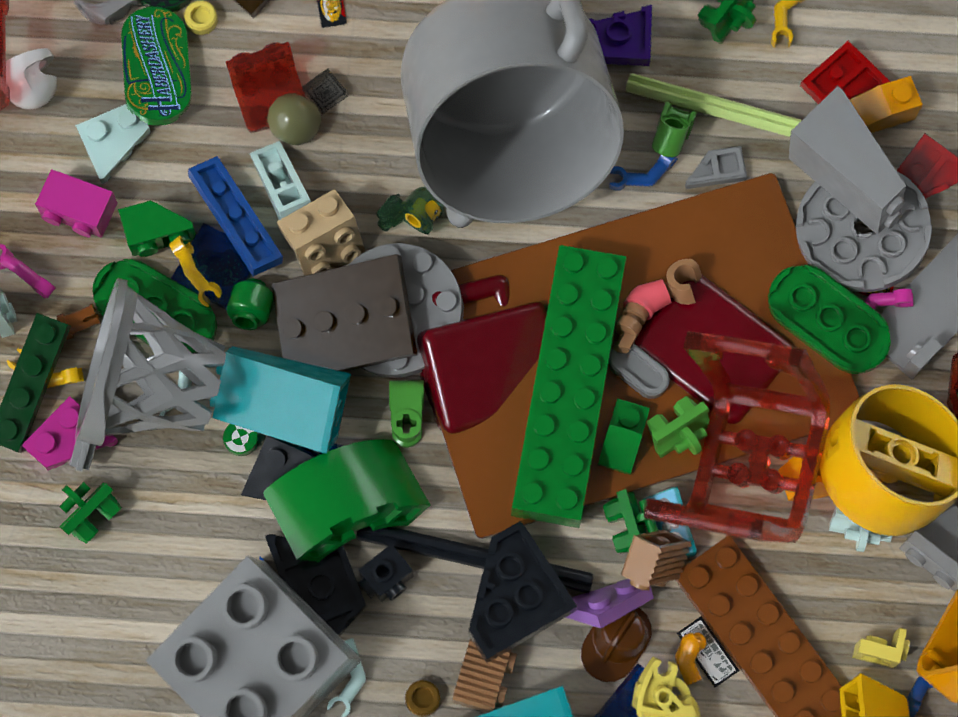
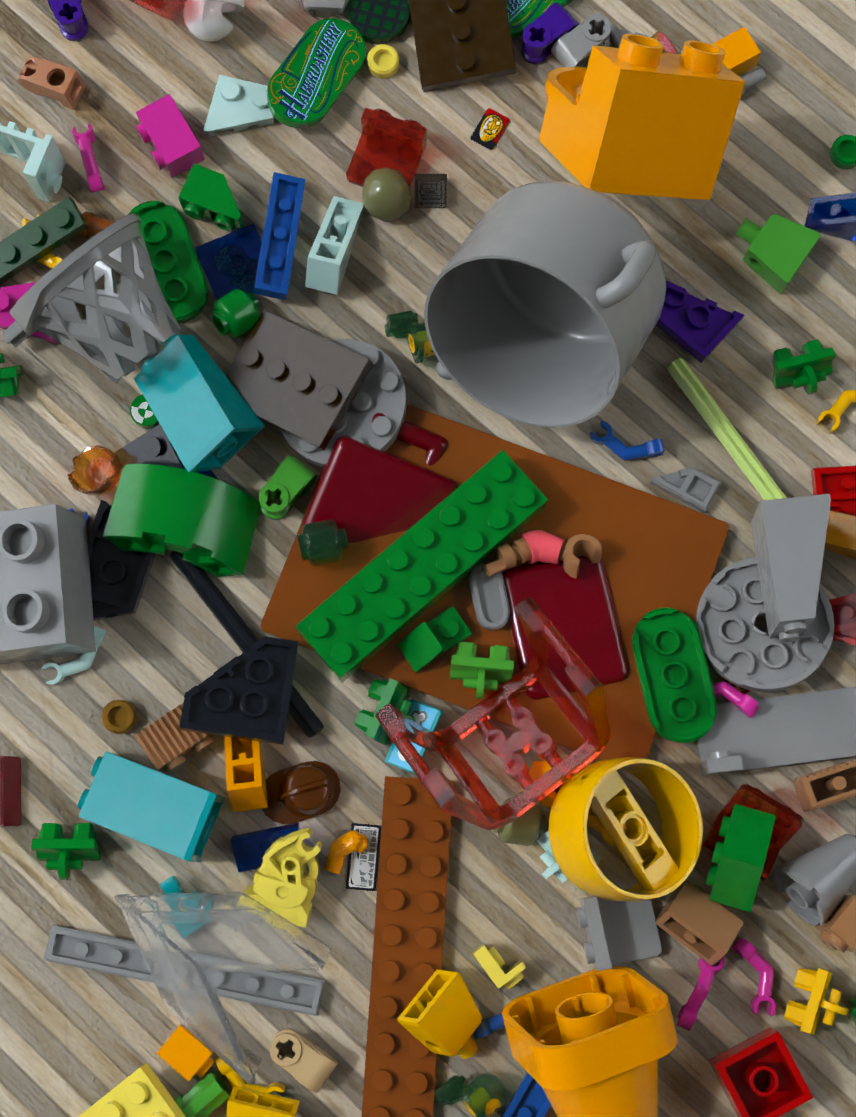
camera: 40 degrees right, 5 degrees up
(183, 253) = (208, 251): yellow arm -> none
(240, 516) = (95, 471): none -> clear orange hair
(323, 234) = (329, 301): tan bracket -> none
(385, 575) = (166, 601): black brick -> none
(475, 428) = (322, 542): none -> clear green head
(564, 658) = (245, 774): none -> light orange slope
(609, 603) = (314, 758): medium lavender wing -> none
(655, 559) = (370, 754): medium nougat brick -> none
(672, 130) = (674, 428): bright green piece -> none
(817, 527) = (523, 829): none -> olive head

